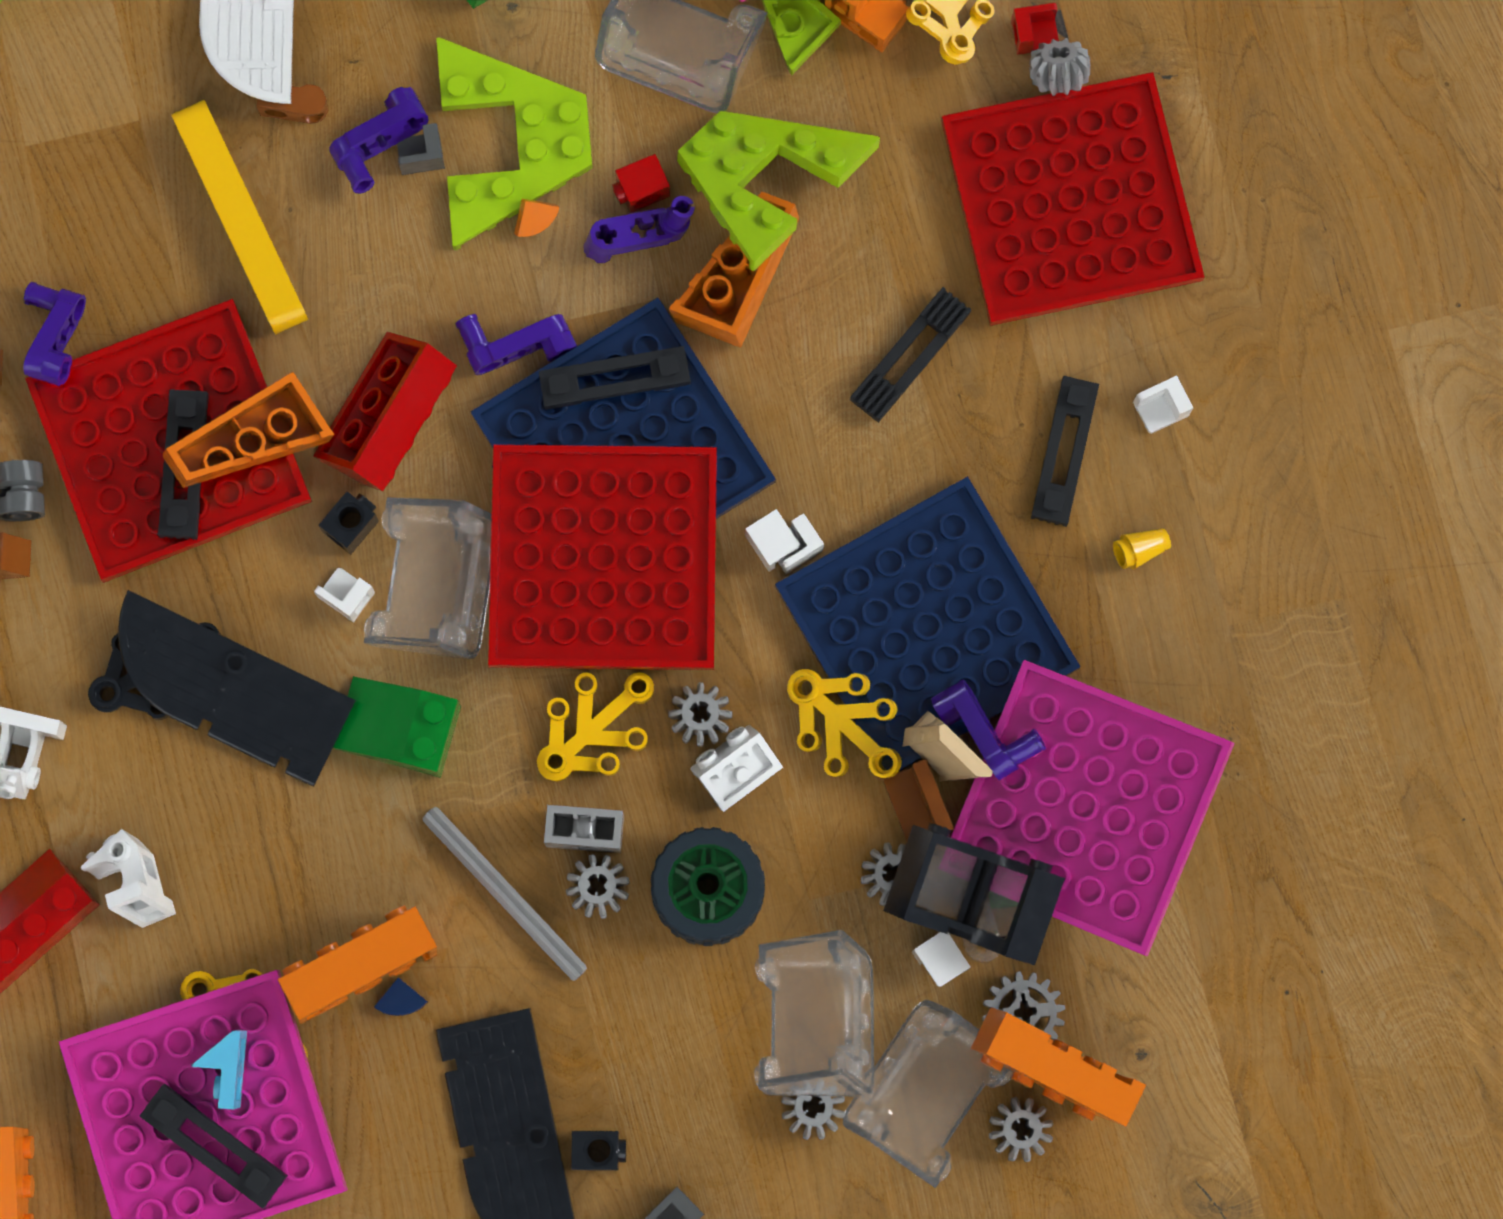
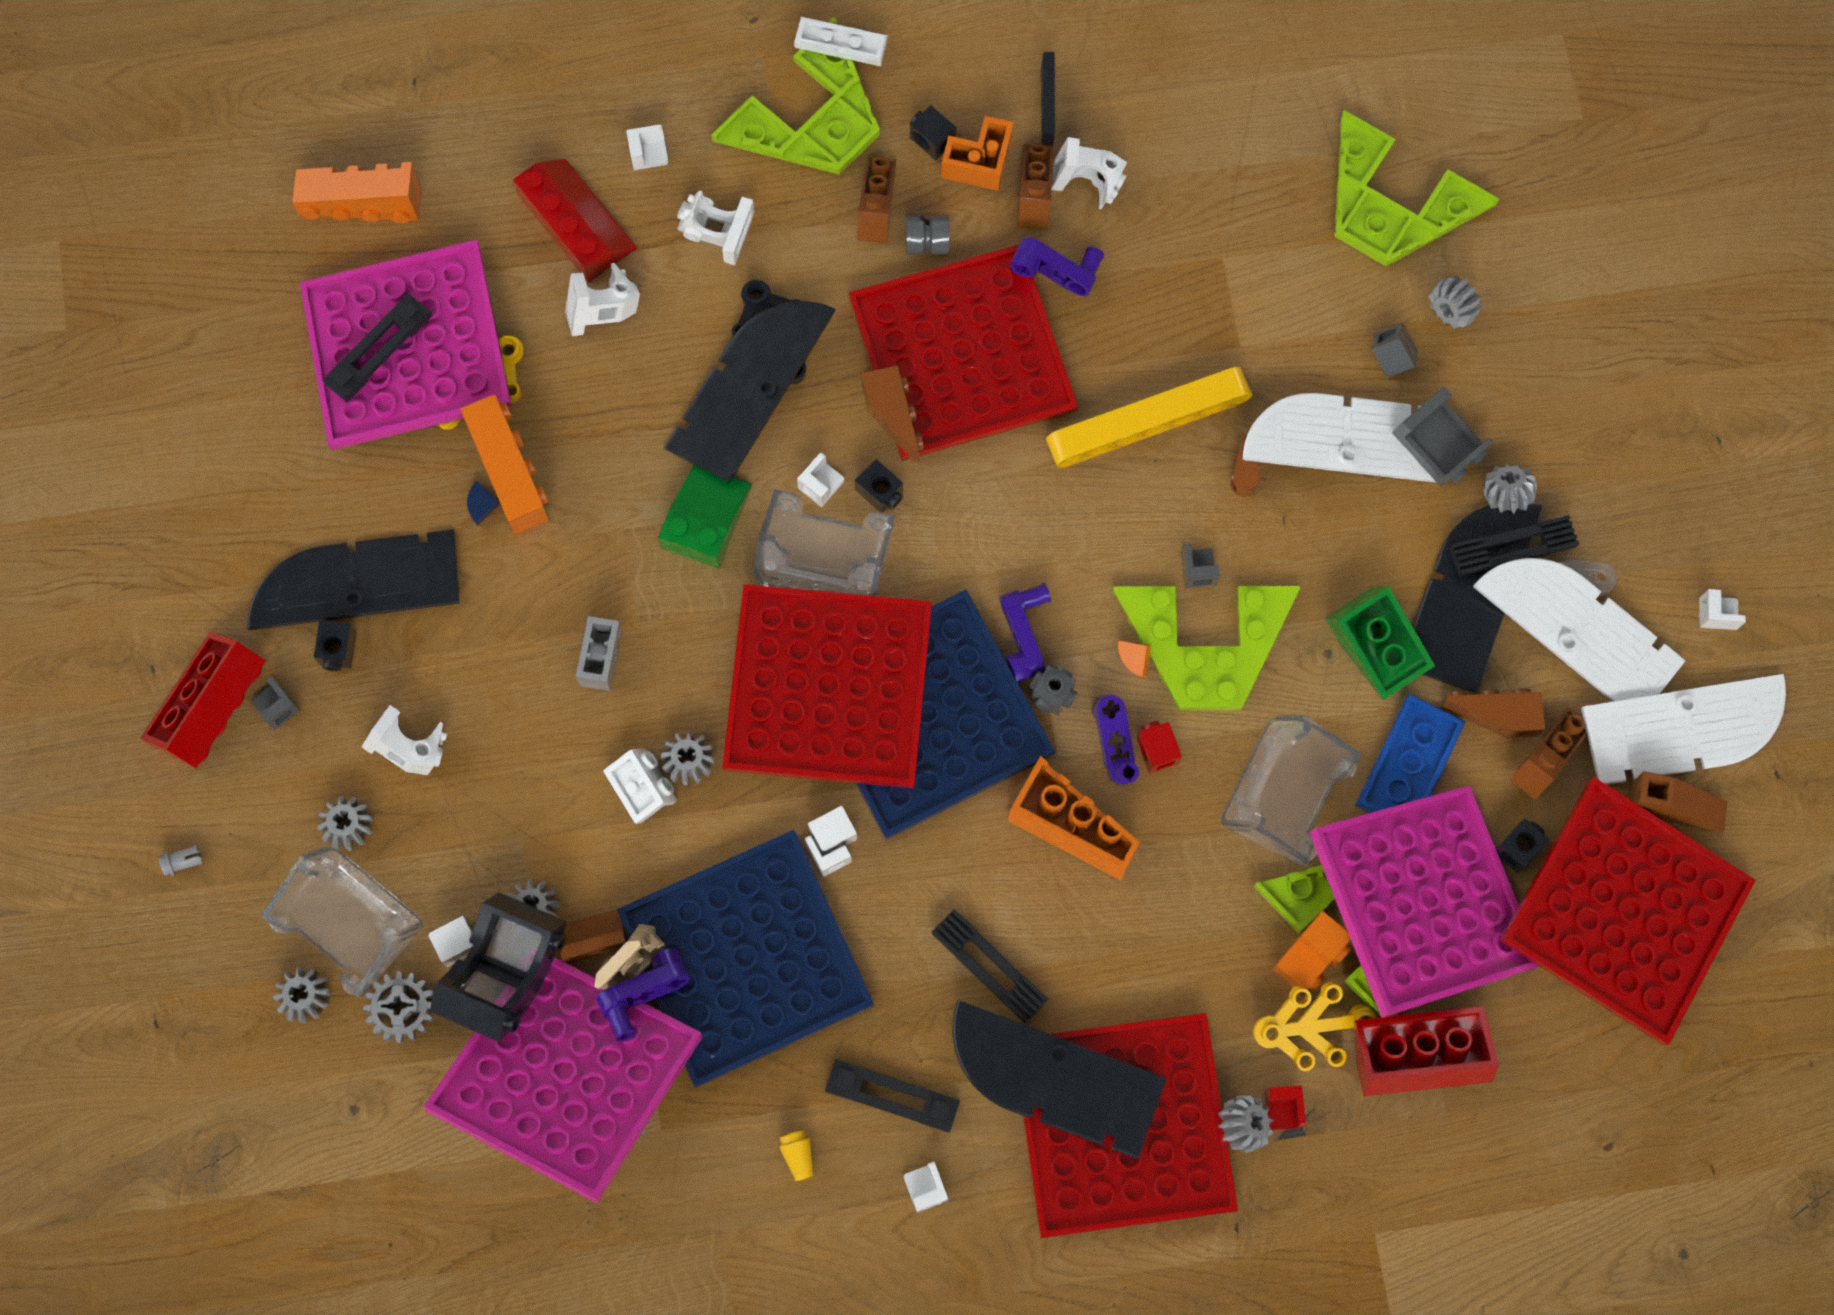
camera: 95 degrees right, 5 degrees down
(178, 516) = (982, 362): black container -> none
(230, 1058) = (438, 360): medium azure slope -> none
(249, 515) = (888, 405): none -> dark orange slope
(252, 433) = (957, 412): orange wedge -> none
(386, 410) = (972, 522): red slope -> none
(400, 121) = (1225, 551): dark purple beam -> none
(504, 893) = (556, 590): light grey axle -> none
(585, 315) = (1048, 699): none -> dark grey brick
(590, 730) = (685, 669): yellow plant -> none
(610, 886) = (558, 653): light grey gear -> none
(667, 368) = (987, 752): black container -> none
(709, 1067) = (407, 754): none -> white tile
(713, 856) = (535, 725): wheel -> none
(739, 146) = (1185, 830): lime wing -> none
(818, 1017) = (413, 832): clear windscreen -> none
(839, 720) = (667, 873): yellow plant -> none
(1034, 258) = (1071, 1083): none -> black door
(1056, 1068) = (342, 1025): orange wedge -> none

